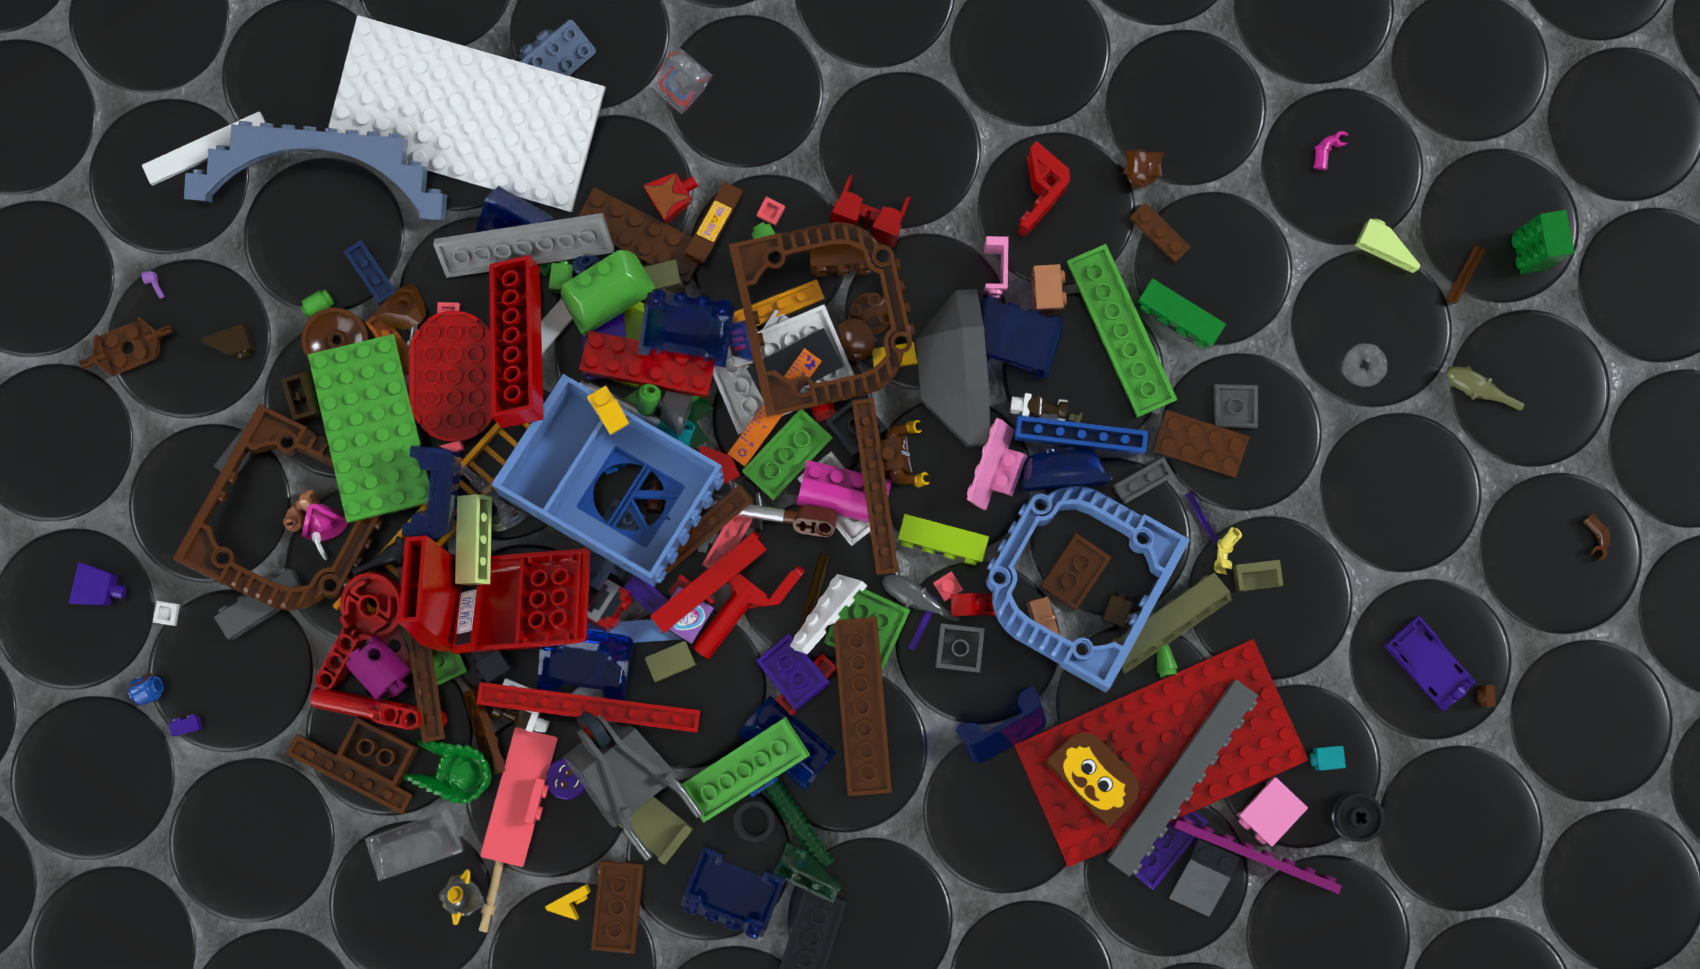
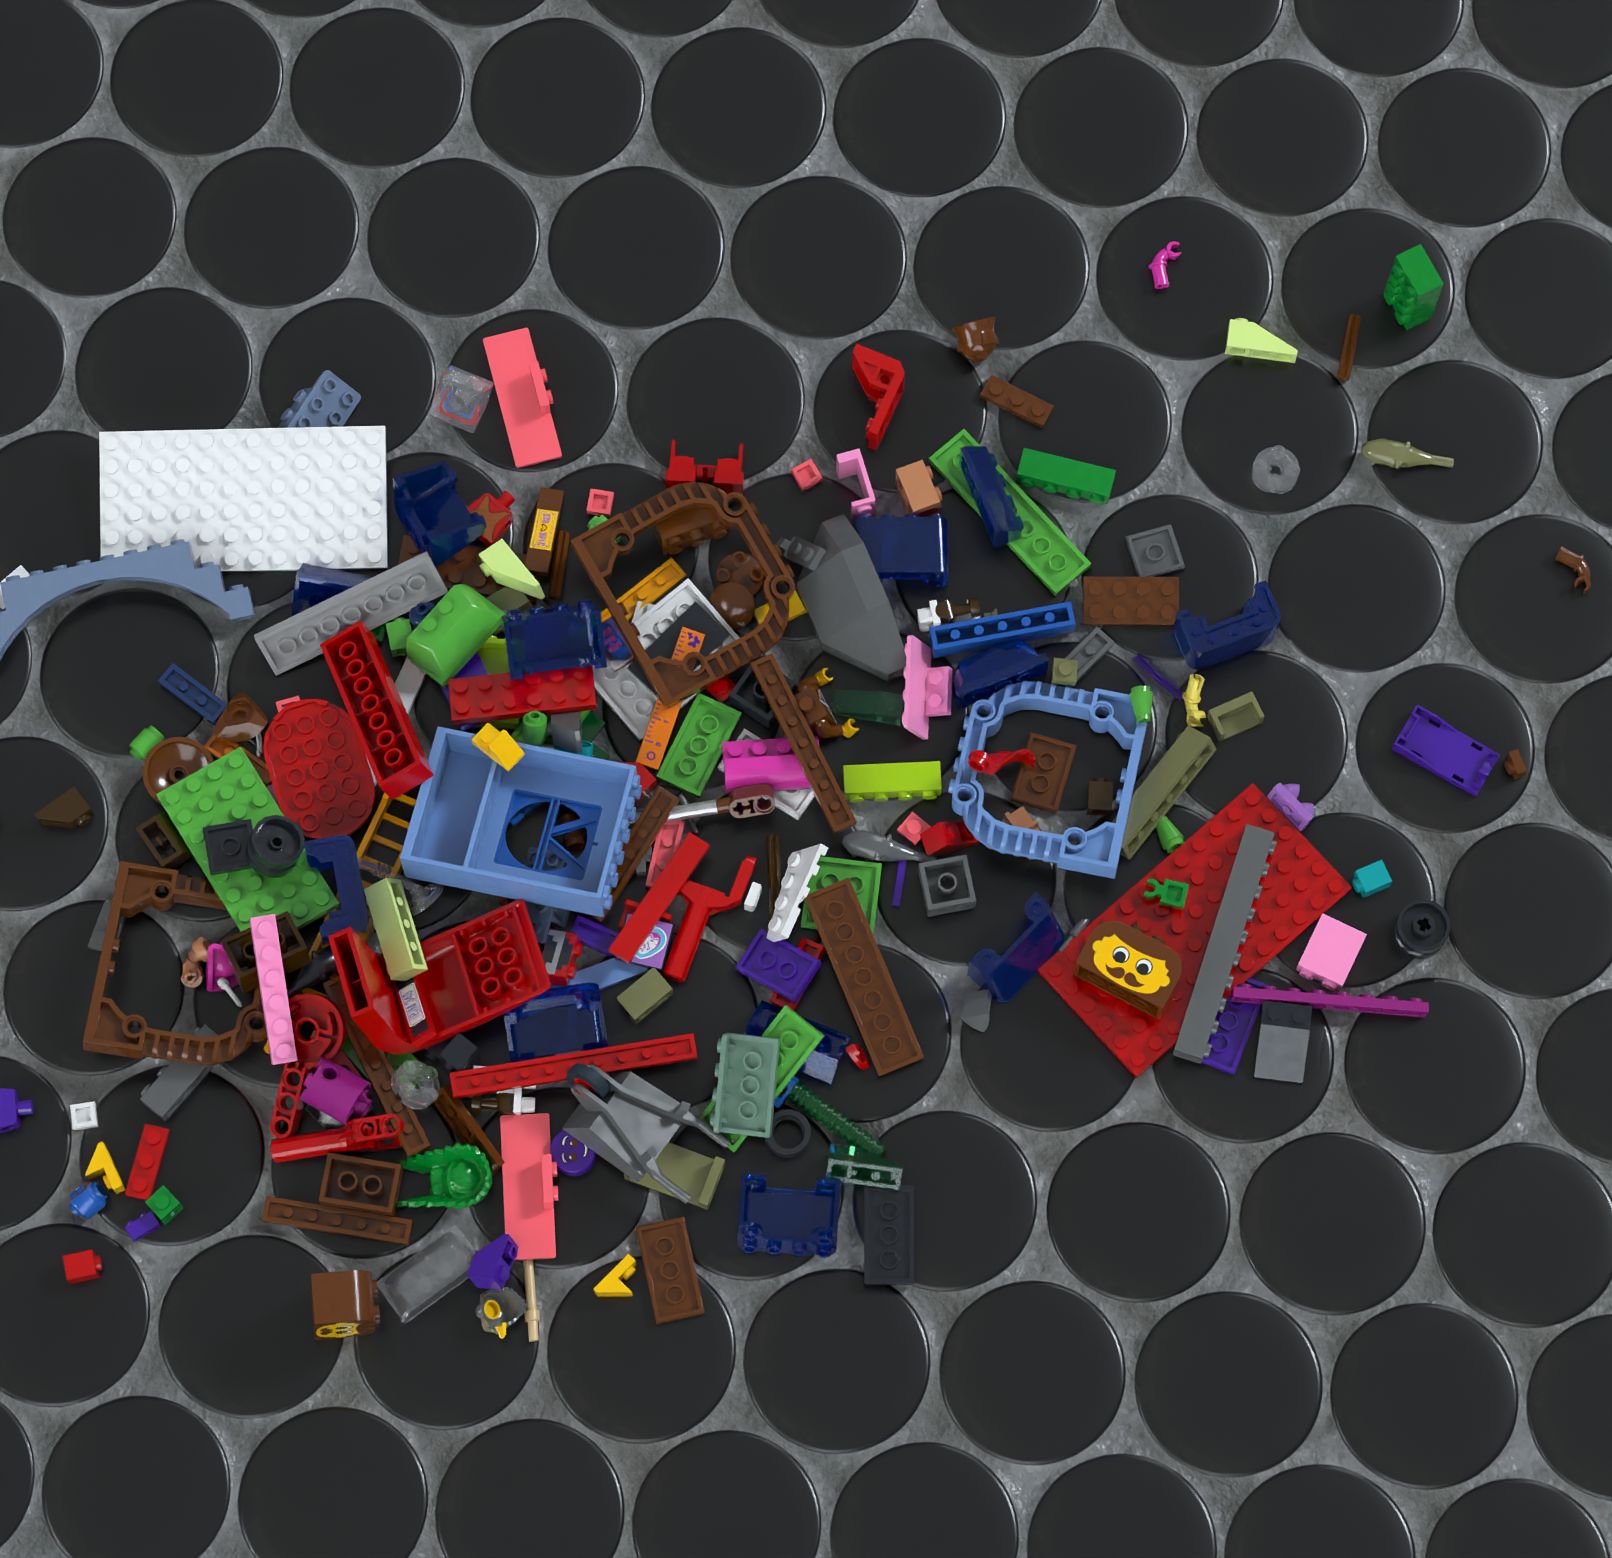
camera: 15 degrees left, 10 degrees down
(123, 745) = (82, 1266): none -> red brick
(169, 660) = (103, 1163): none -> yellow slope
(207, 671) = (147, 1162): none -> red plate
(207, 714) = (164, 1204): none -> green brick
(324, 857) = (344, 1304): none -> reddish brown brick
(348, 564) = (273, 989): none -> bright pink plate
(354, 526) = (241, 954): none -> dark brown slope
(355, 423) = (227, 846): none -> black tile
(385, 425) = (274, 846): none -> black wheel
(461, 681) = (424, 1075): none -> clear plate
(465, 860) = (493, 1263): none -> dark purple slope
(625, 178) = (435, 512): none -> clear blue windscreen
(669, 248) = (508, 570): none -> yellowish green slope
(718, 255) = (559, 565): none -> reddish brown axle
(729, 774) = (745, 1084): none -> sand green bracket
(734, 96) = (523, 397): none -> coral bracket
(790, 604) = (753, 897): none -> white tile
(836, 772) = (858, 1056): none -> red tile
(929, 313) = (802, 552): none -> dark grey hinge
(943, 465) = (868, 705): none -> clear green slope
(951, 763) = (977, 1009): none -> dark grey tile
(956, 241) = (806, 475): none -> coral tile
(1035, 554) = (993, 762): none -> red plant
(1056, 722) = (1081, 925): none -> dark grey piece
(1108, 313) = (989, 495): none -> clear blue slope
(1122, 490) = (1064, 671): none -> olive plate
(1150, 718) = (1171, 894): none -> green plate
(1180, 542) = (1141, 701): none -> bright green cone
(1276, 665) = (1285, 800): none -> medium lavender tile
(1308, 500) = (1212, 644): none -> clear blue windscreen

